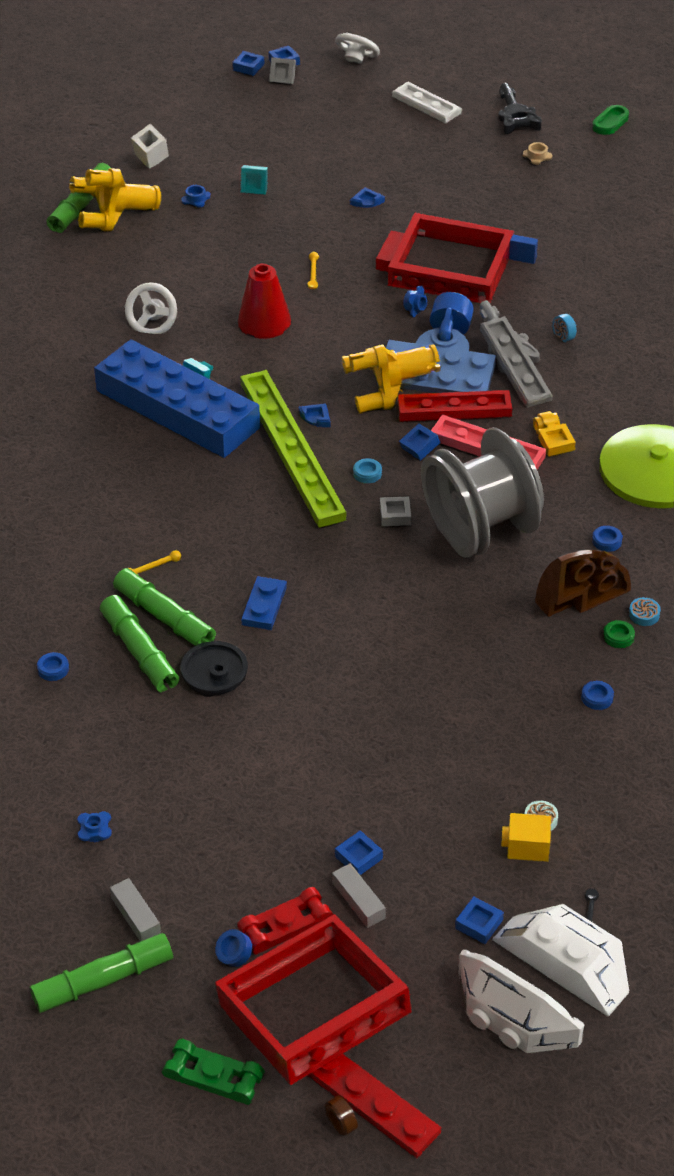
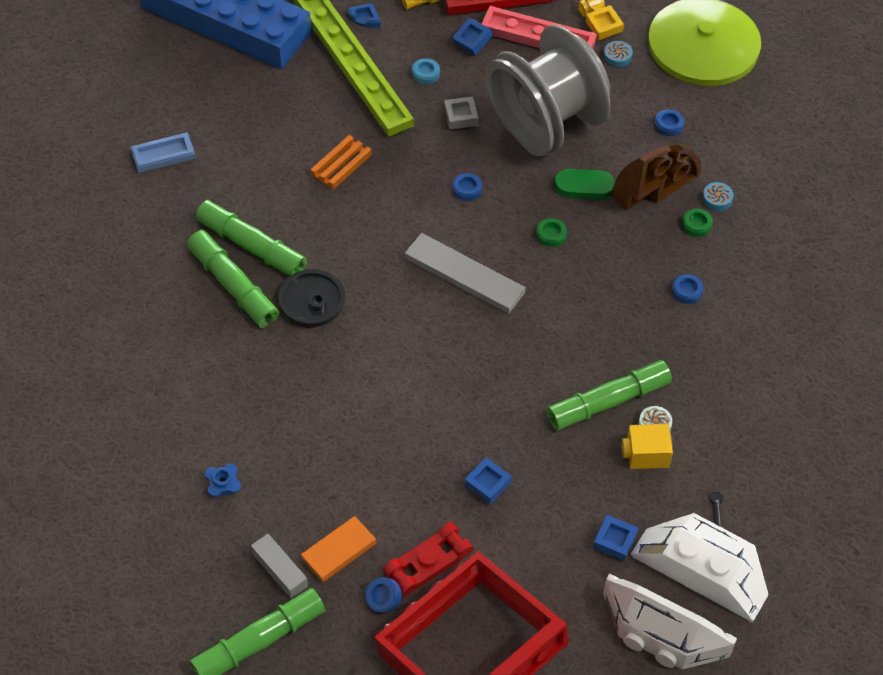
camera: 10 degrees left, 10 degrees up
(53, 666) = (150, 311): blue tile -> none
(93, 523) = (163, 152): none -> medium blue tile
(174, 556) = (251, 180): yellow hinge -> none
(197, 902) = (338, 549): none -> orange tile
(264, 543) = (364, 154): none -> orange tile
(264, 603) = (348, 222): blue plate -> none
(358, 895) = (495, 525): light grey piece -> none
(372, 659) = (465, 273): none -> light grey tile
(389, 580) = (467, 187): none -> blue tile
(467, 630) = (551, 232): none -> green tile
(497, 786) = (609, 395): none -> bright green piece
(508, 587) = (584, 183): none -> green tile
(566, 470) = (618, 54): none -> dark azure tile

